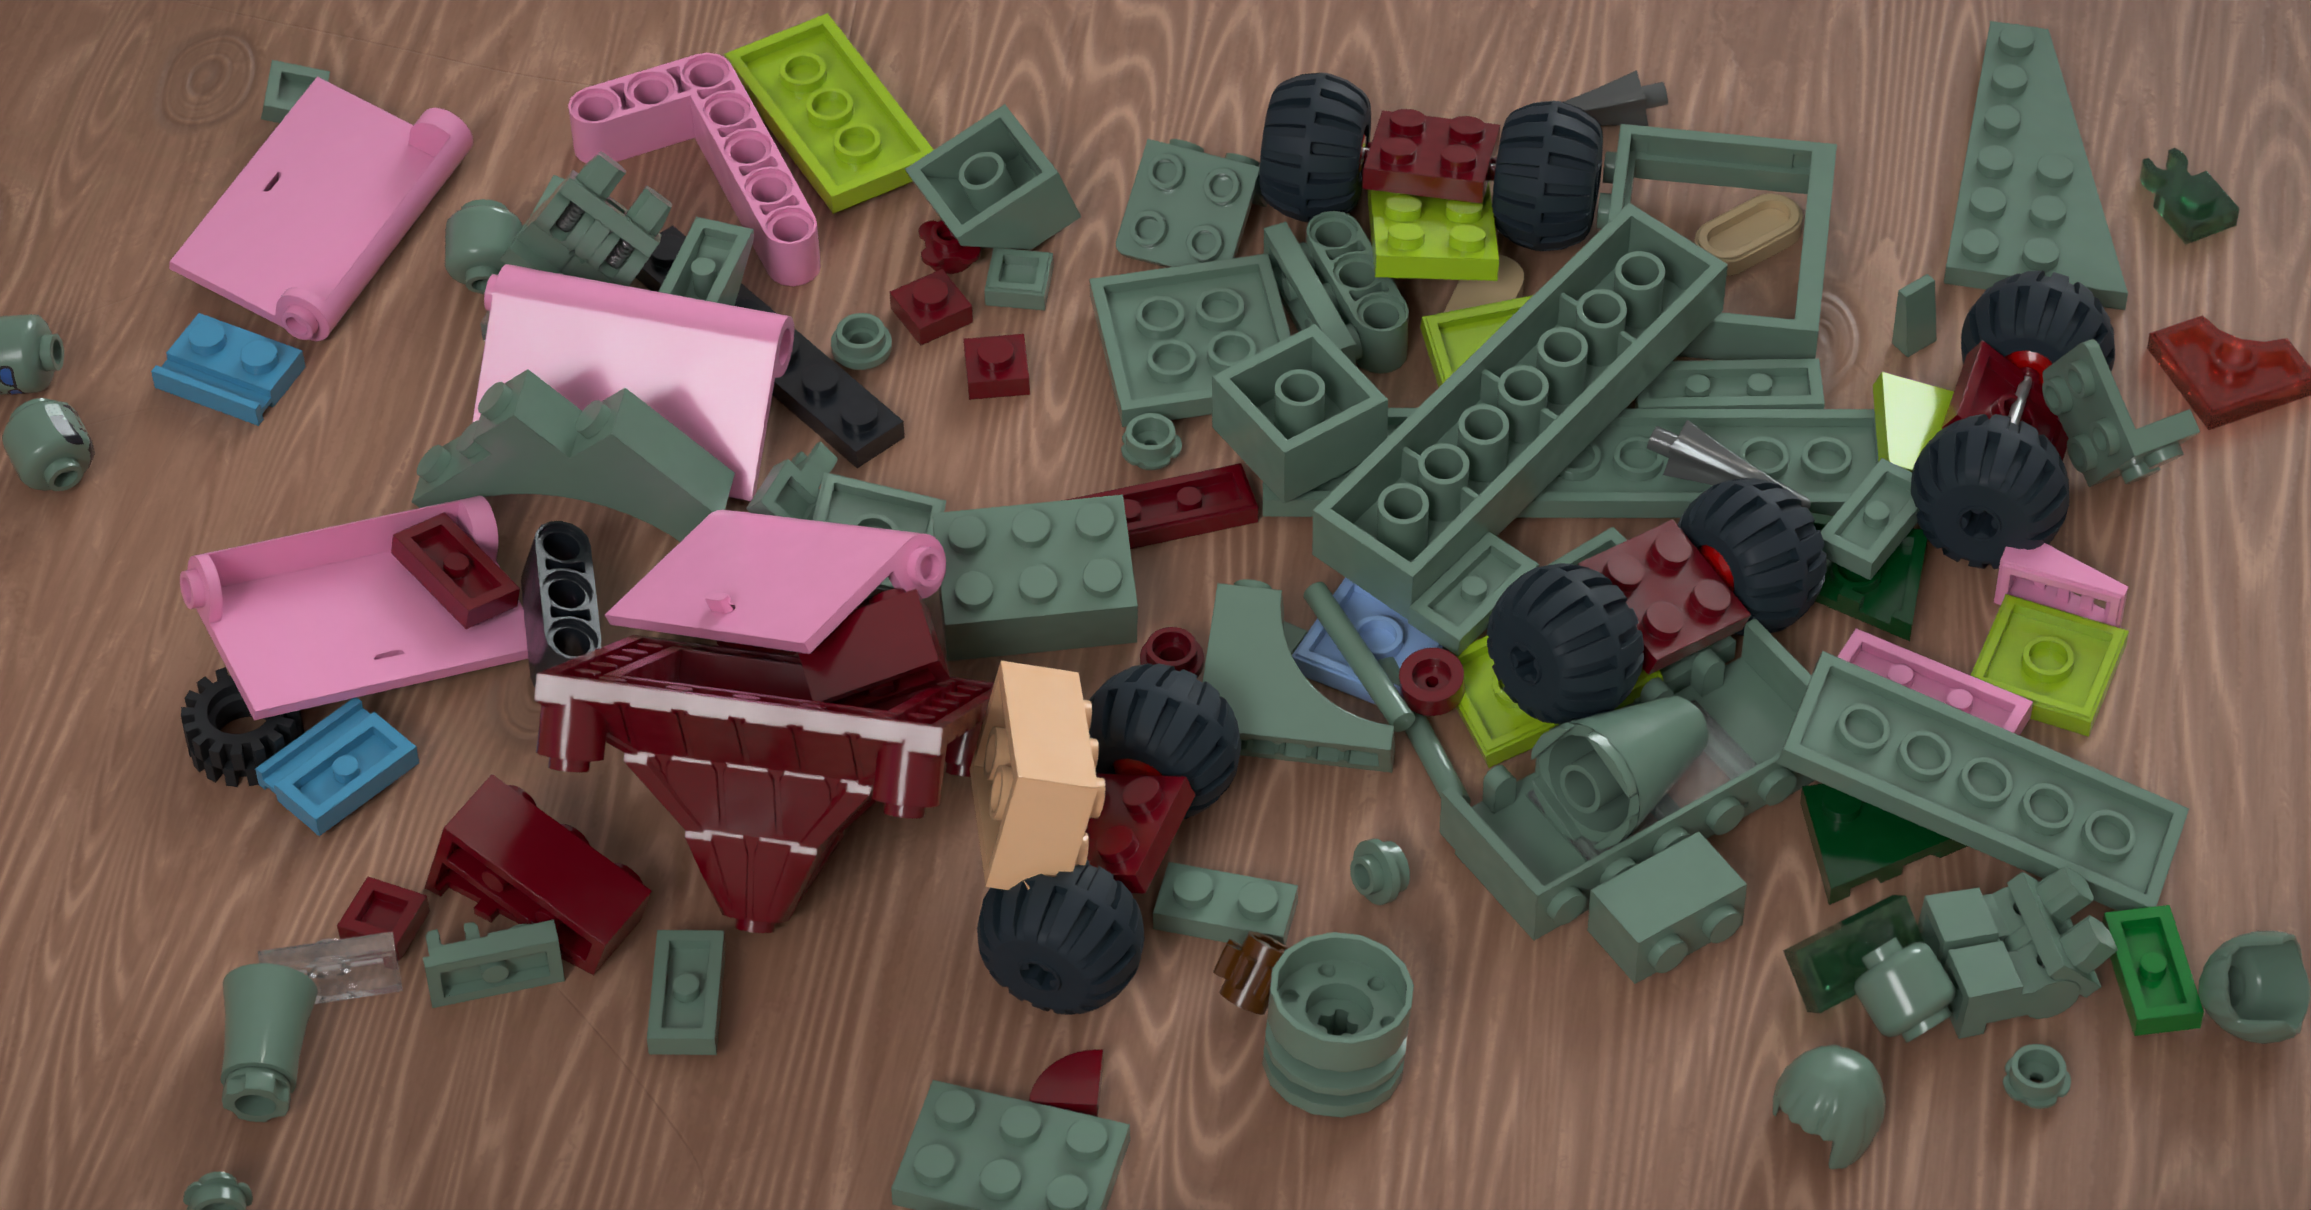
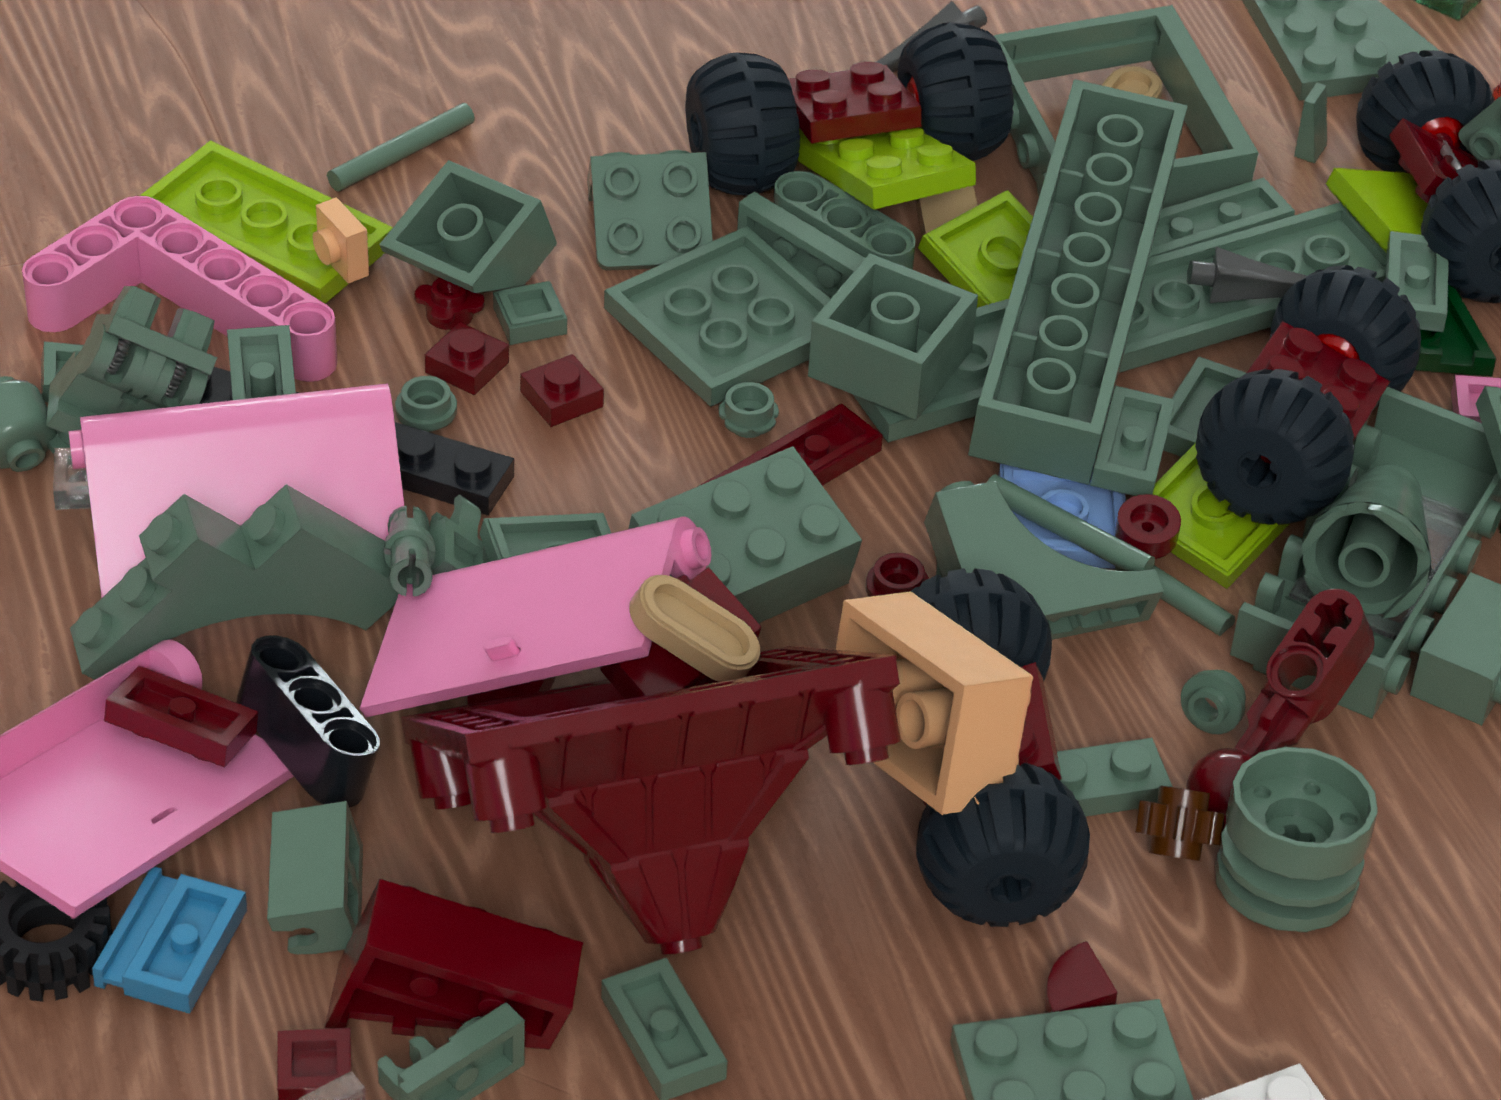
camera: 30 degrees left, 5 degrees down
(487, 736) = (315, 876): none -> sand green hinge
(731, 482) = (409, 551): none -> sand green pin
(862, 156) = (341, 240): none -> light nougat plate
(864, 642) = (694, 628): none -> tan tile
(1010, 69) = (400, 147): none -> sand green bar
(1449, 876) = (1328, 626): none -> dark red beam

